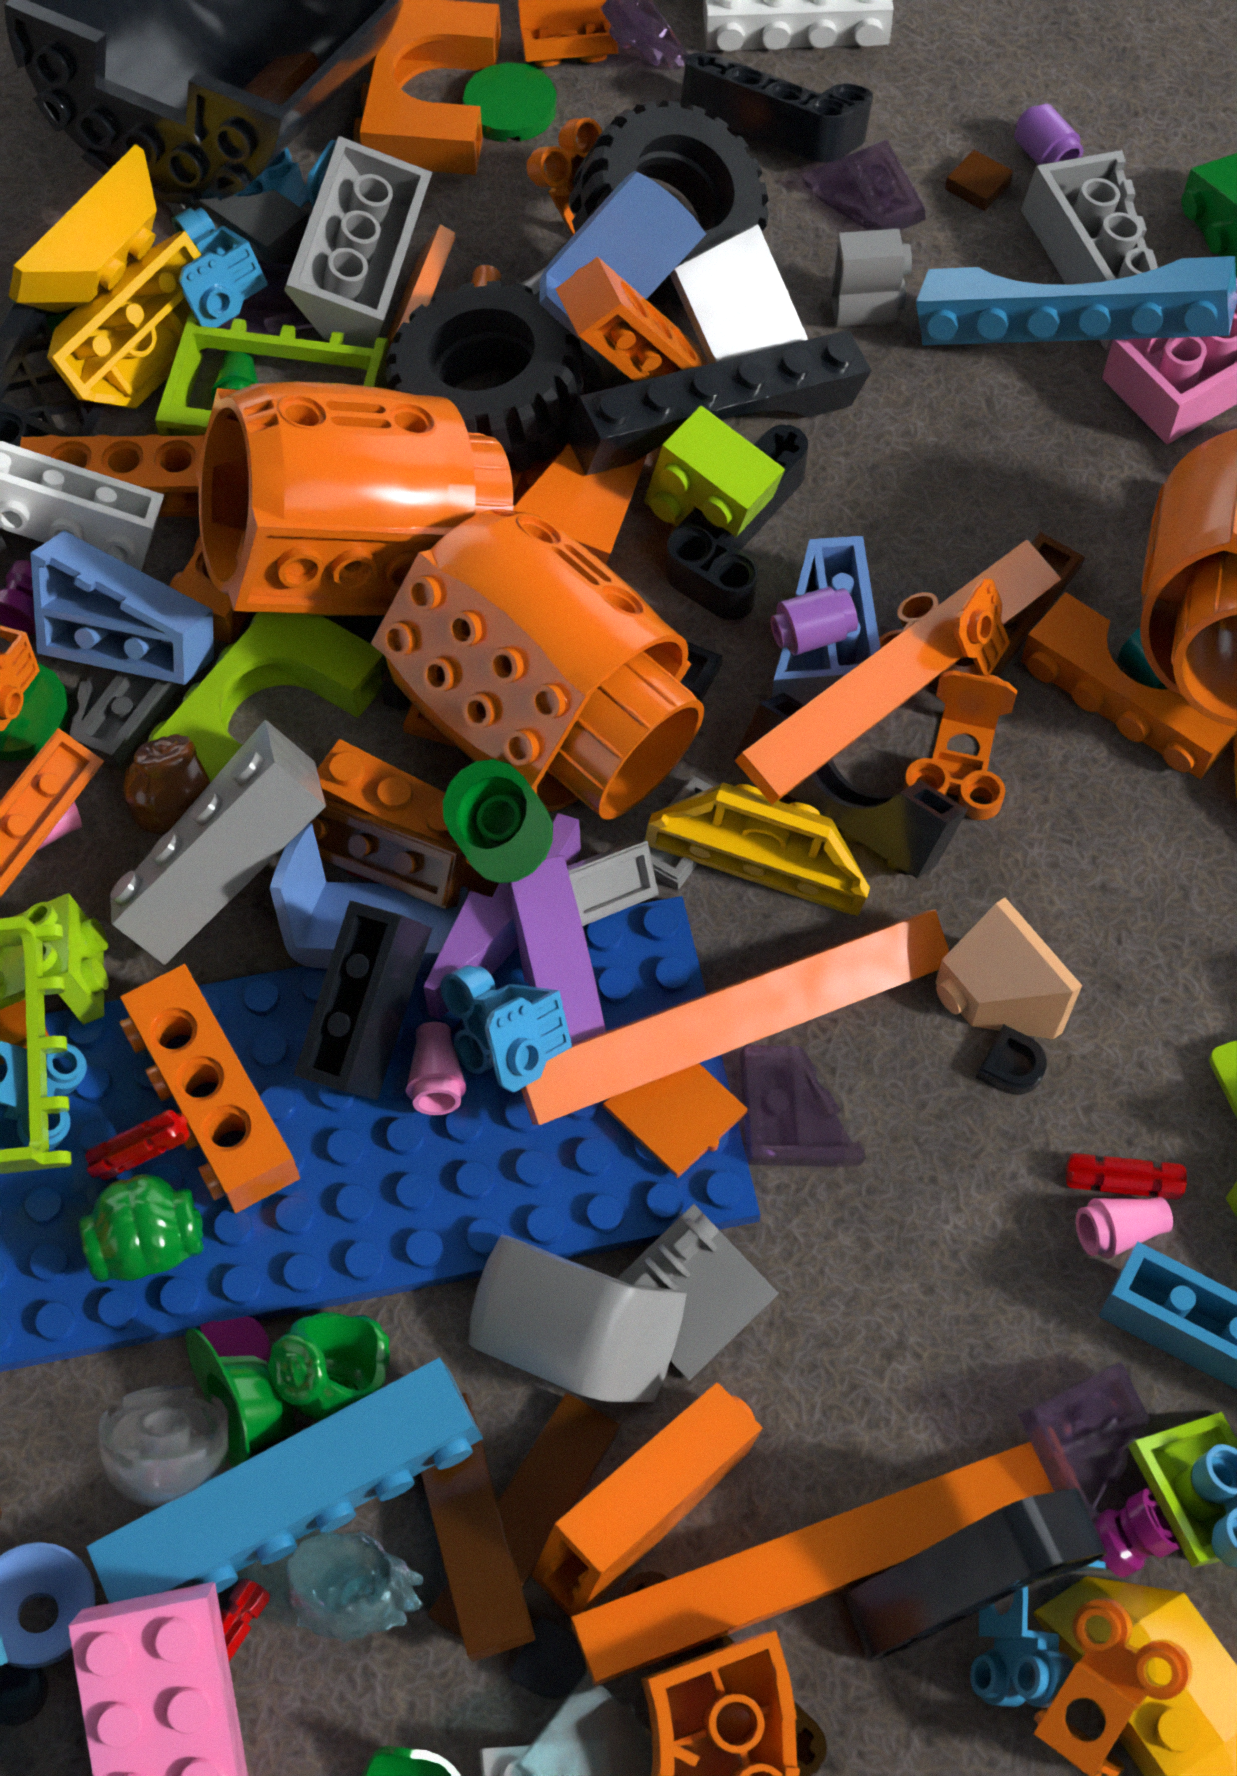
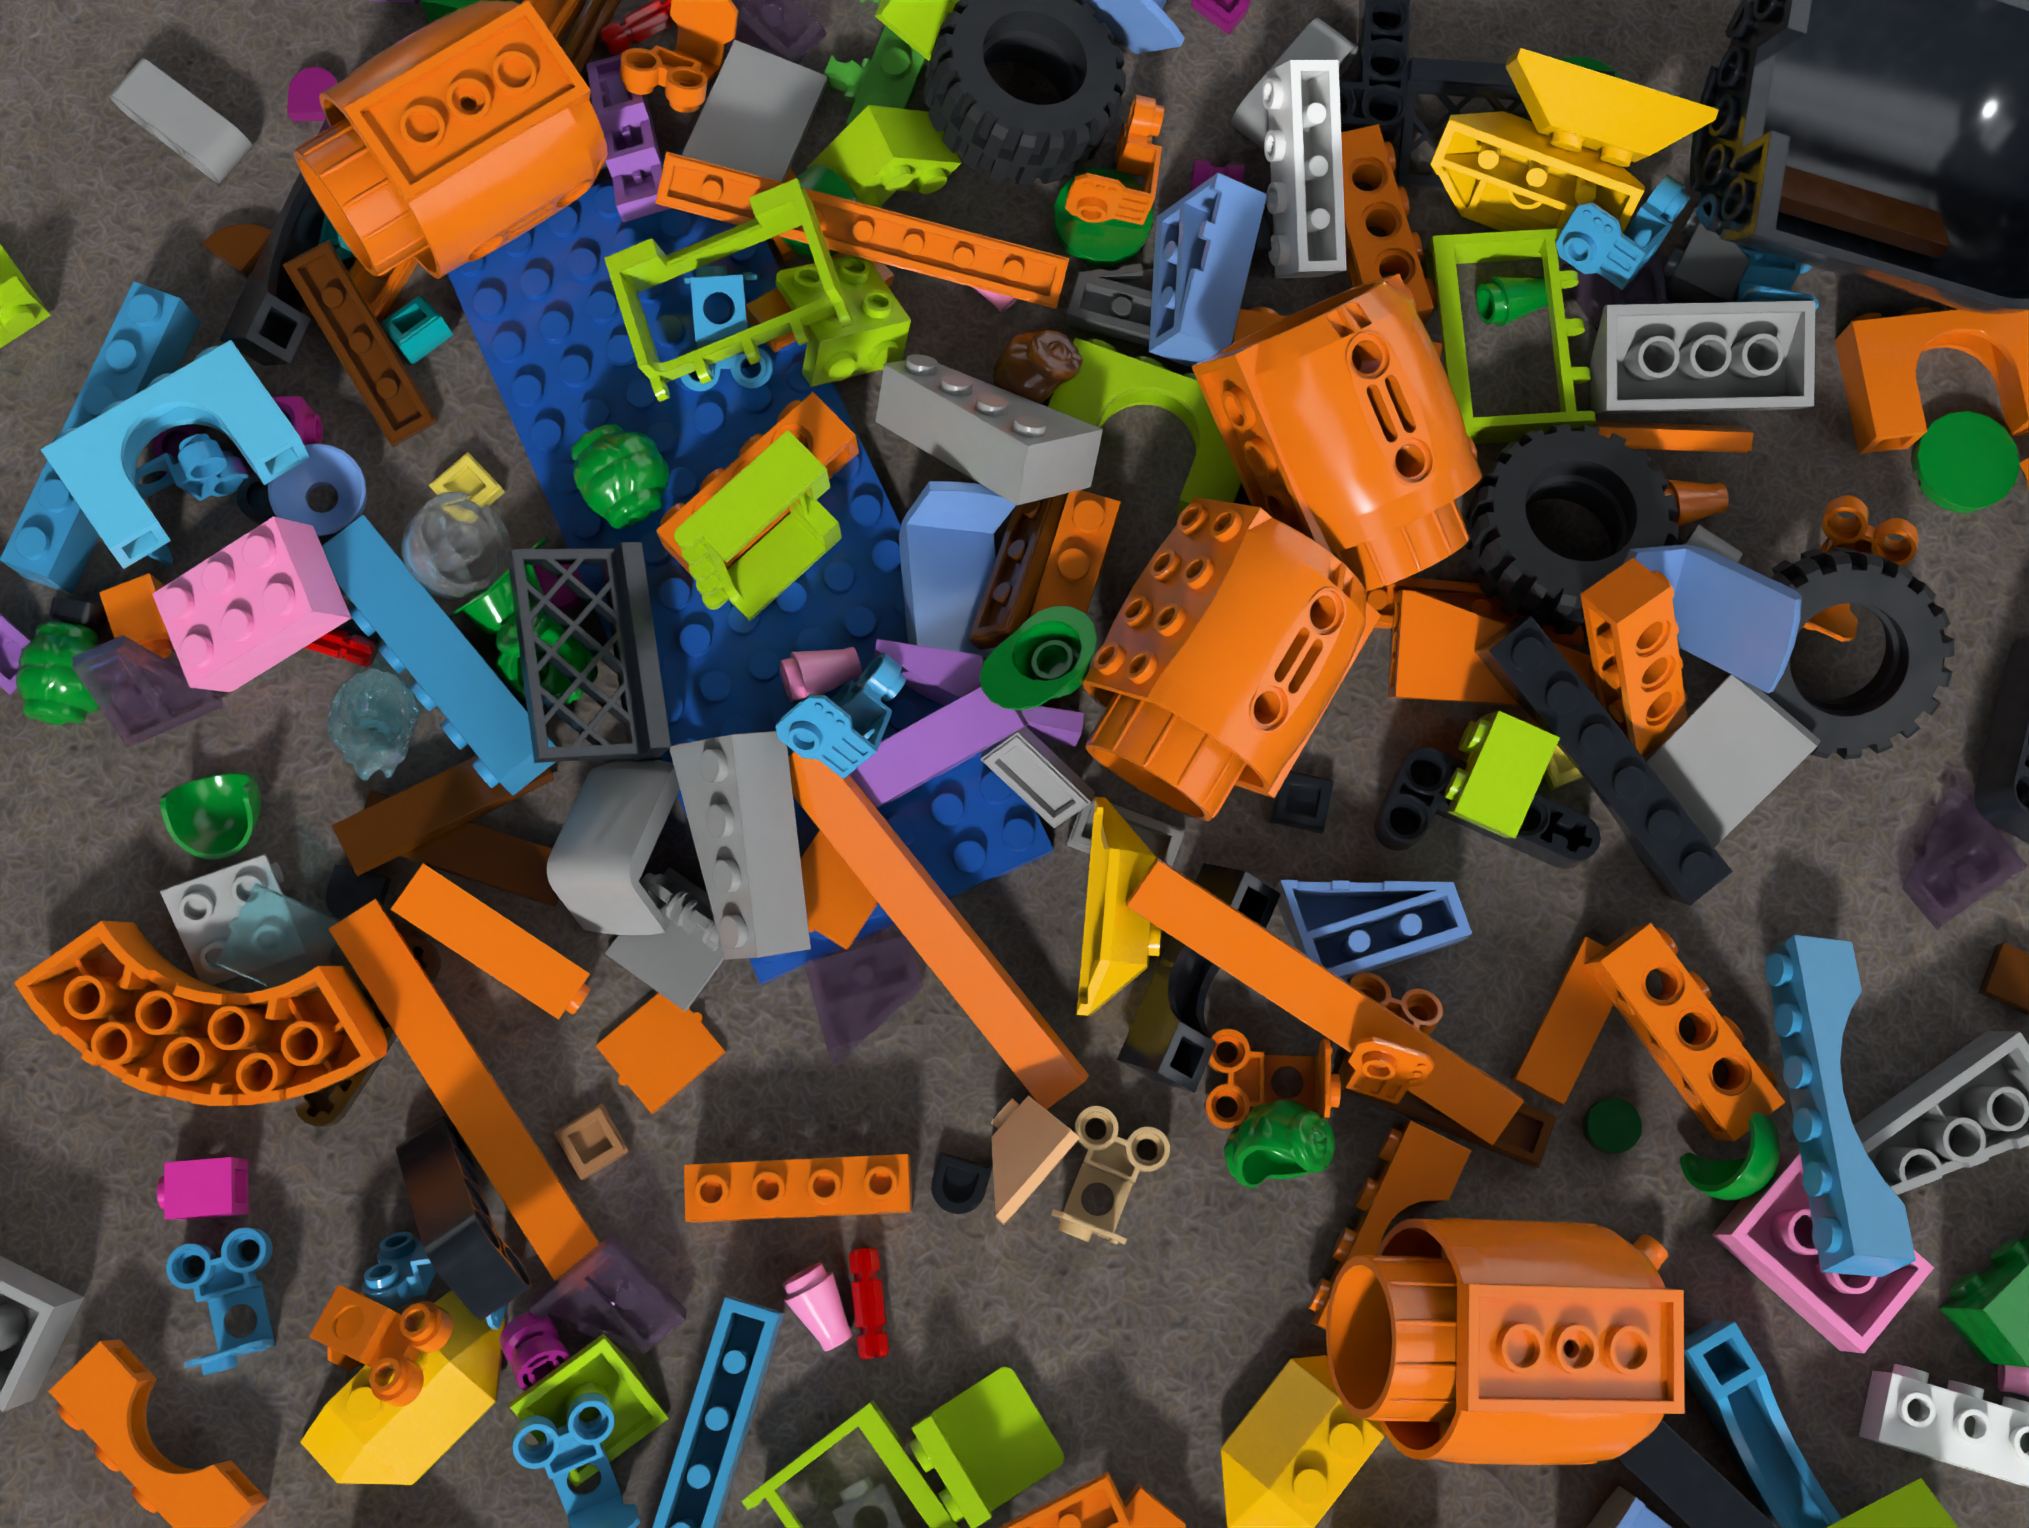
camera: 75 degrees right, 15 degrees up
(76, 1435) = (470, 478): none -> light yellow tile
(137, 1145) = (689, 448): red axle -> none
(270, 1040) = (776, 479): none -> lime hinge
(352, 1258) = (633, 644): none -> black fence
(363, 1000) = (850, 591): black brick -> none
(608, 1168) = (746, 840): none -> light grey wedge
(810, 1343) = (660, 1050): none -> orange piece
(814, 620) = (1344, 901): medium lavender brick -> none
(869, 277) = (1817, 881): light grey brick -> none
(901, 1436) = (592, 1142): none -> medium nougat tile
(951, 502) = (1566, 1030): none -> orange tile
(981, 412) = (1689, 1066): none -> orange brick
(997, 1215) = (797, 1188): none -> orange brick
(1026, 900) = (1112, 1163): none -> tan piece
(1028, 748) = (1279, 1143): none -> green hair
(1054, 494) = (1612, 1126): none -> dark green tile
(1120, 394) = (1741, 1176): none -> green helmet

